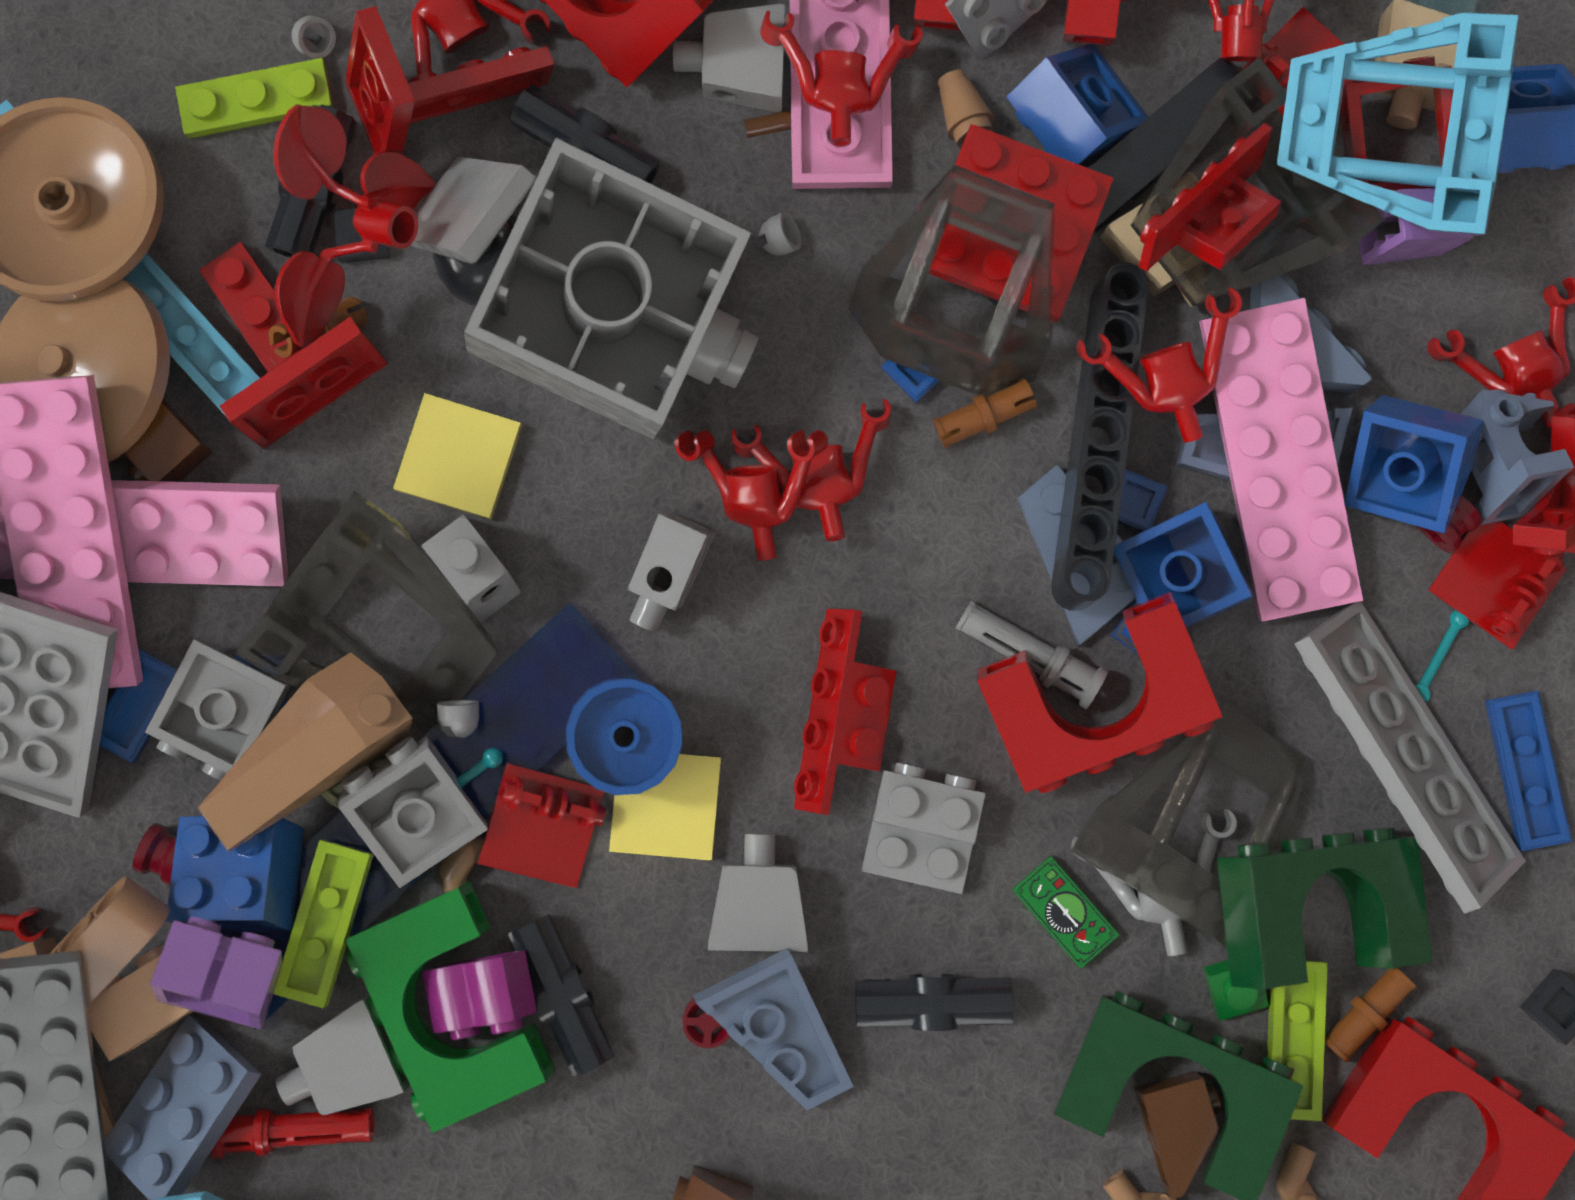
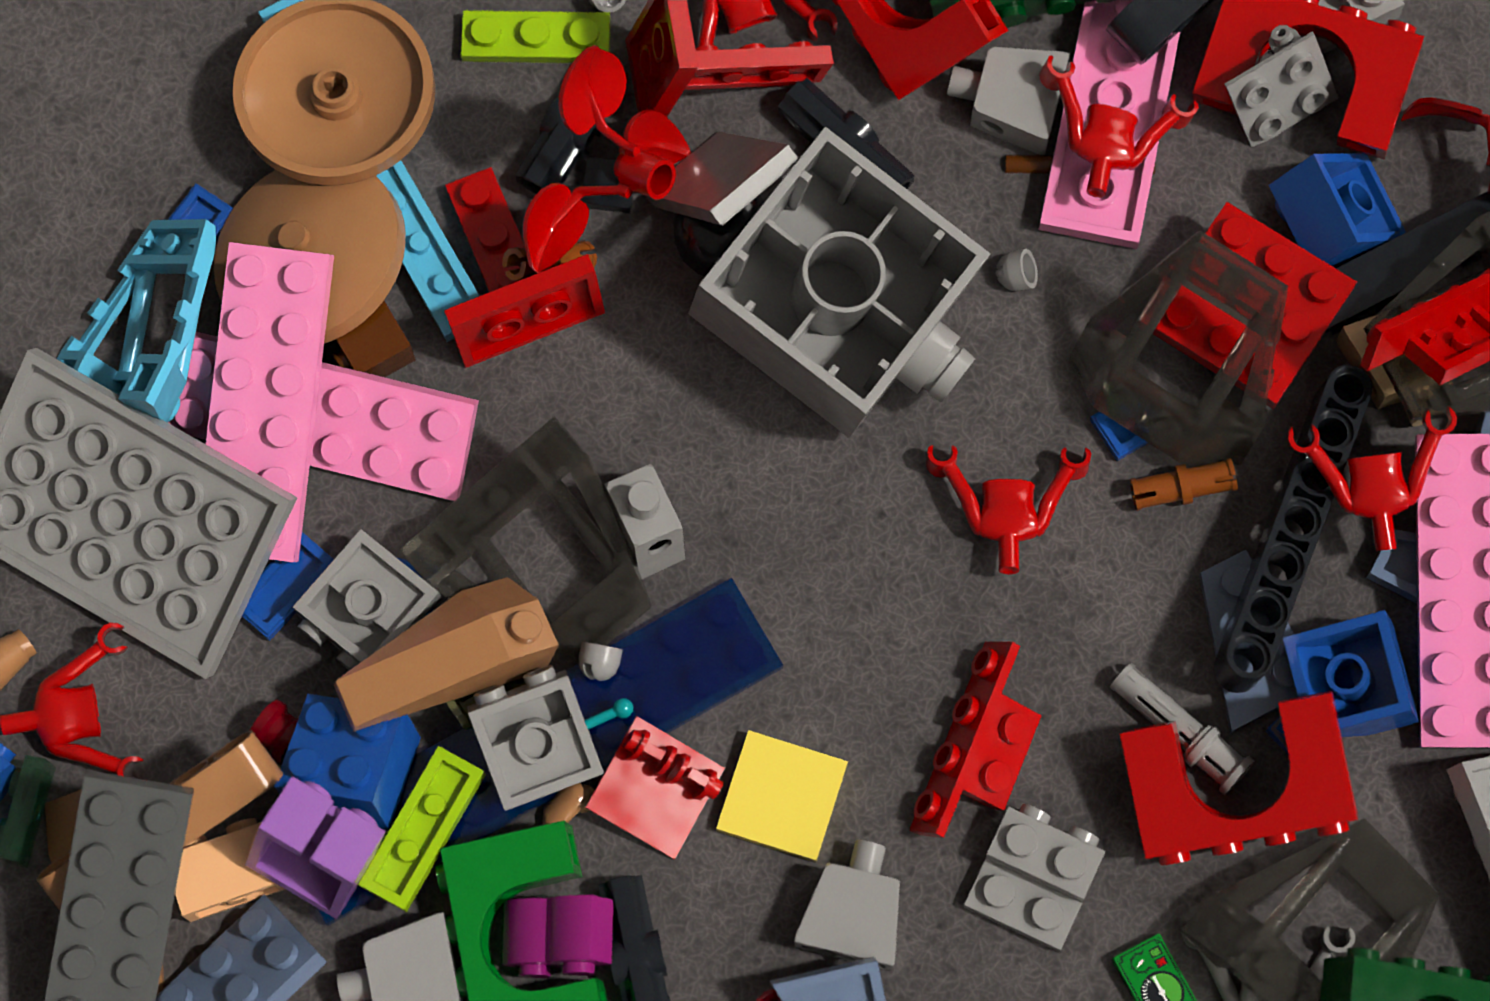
camera: 20 degrees right, 10 degrees down
(457, 456) = (653, 414): light yellow tile -> none
(654, 735) = (751, 741): blue wheel -> none
(679, 548) = (858, 549): light grey torso -> none
(752, 491) = (936, 510): red piece -> none
(962, 106) = (1224, 184): medium nougat cone -> none
(1140, 501) = (1319, 601): blue tile -> none

